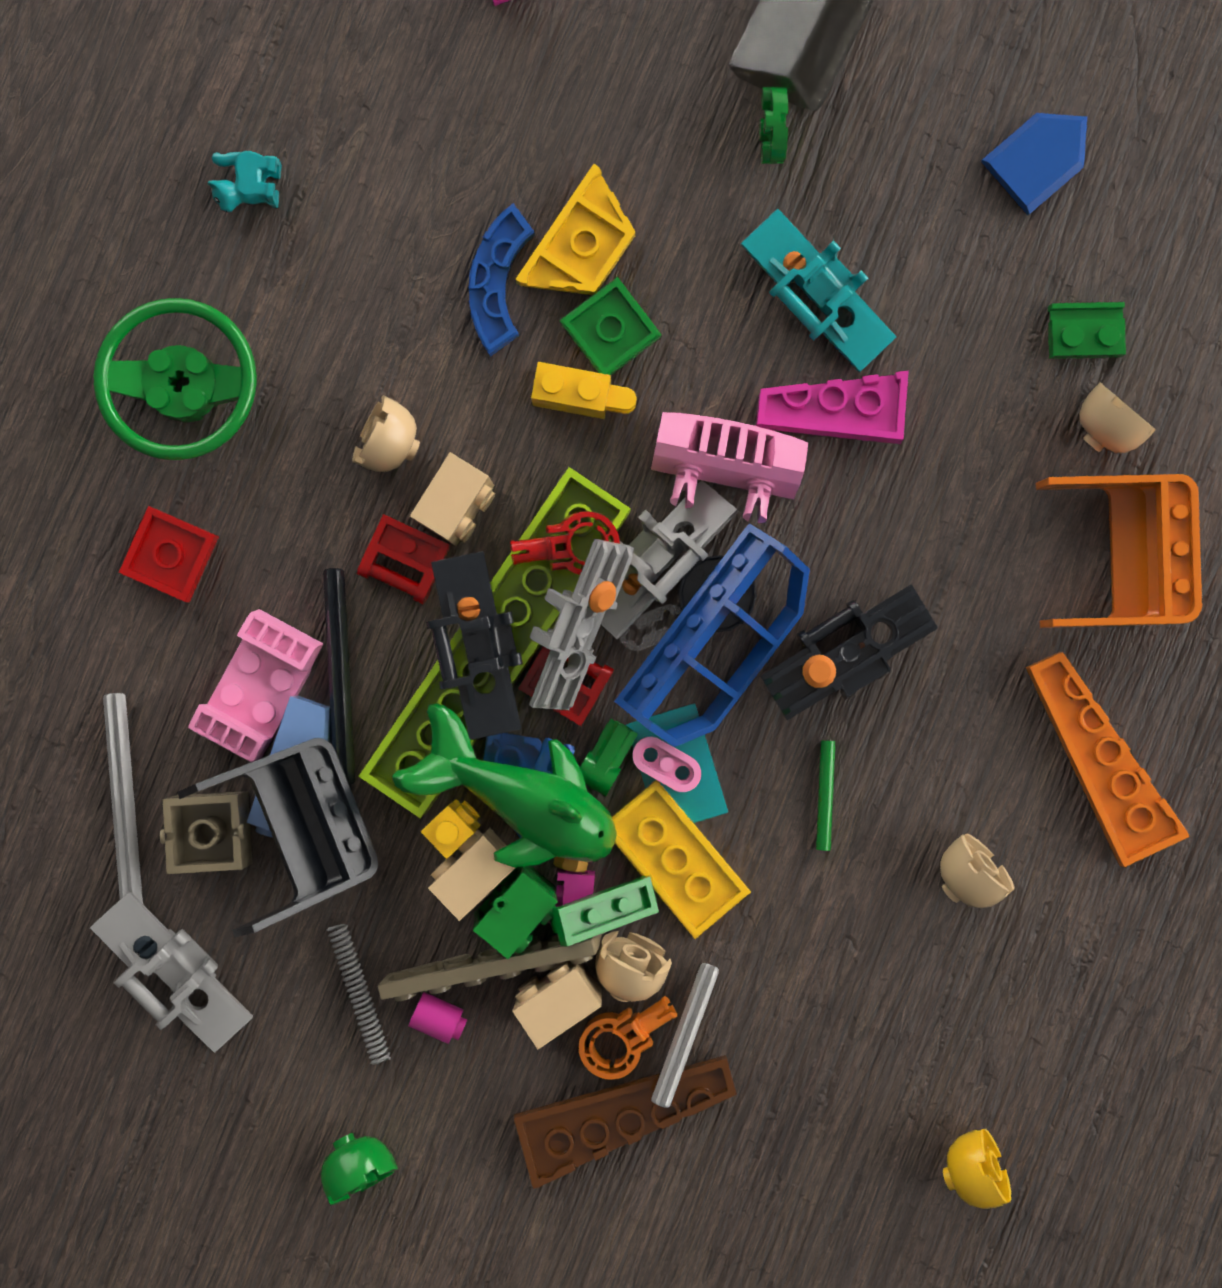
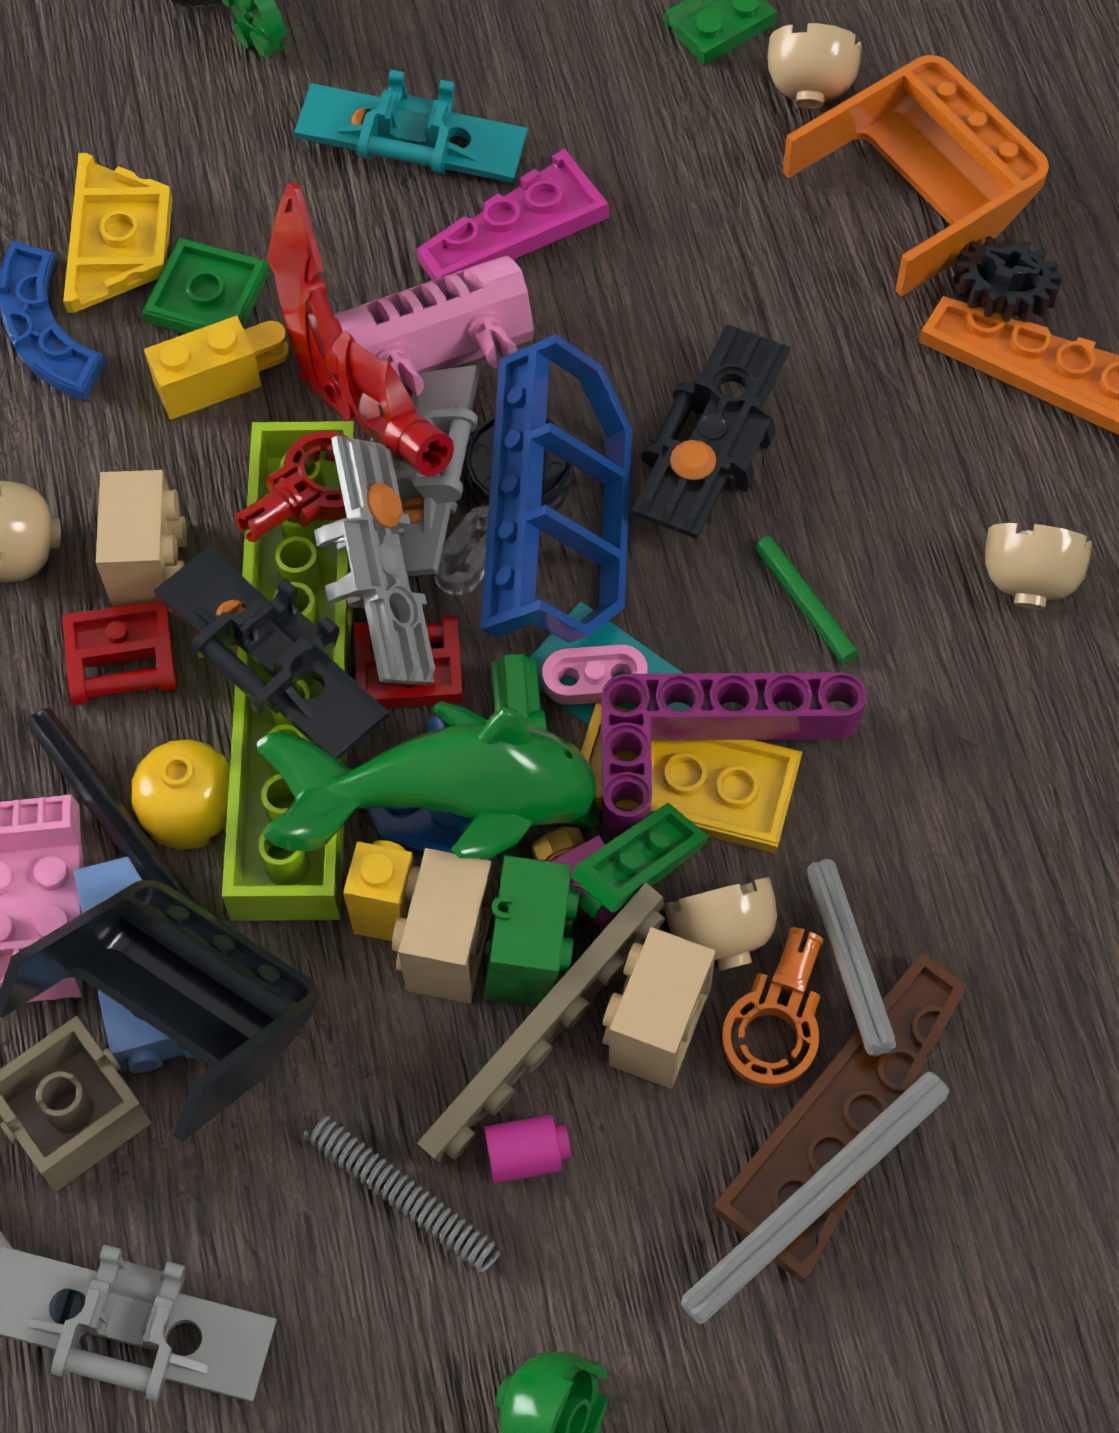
camera: 35 degrees left, 25 degrees down
(386, 677) = (182, 793): none -> yellow cylinder
(568, 1155) = (814, 1198): none -> light grey axle
(645, 446) = (332, 361): none -> red piece
(706, 842) = (710, 721): none -> magenta beam
(1109, 664) = (1007, 279): none -> black gear

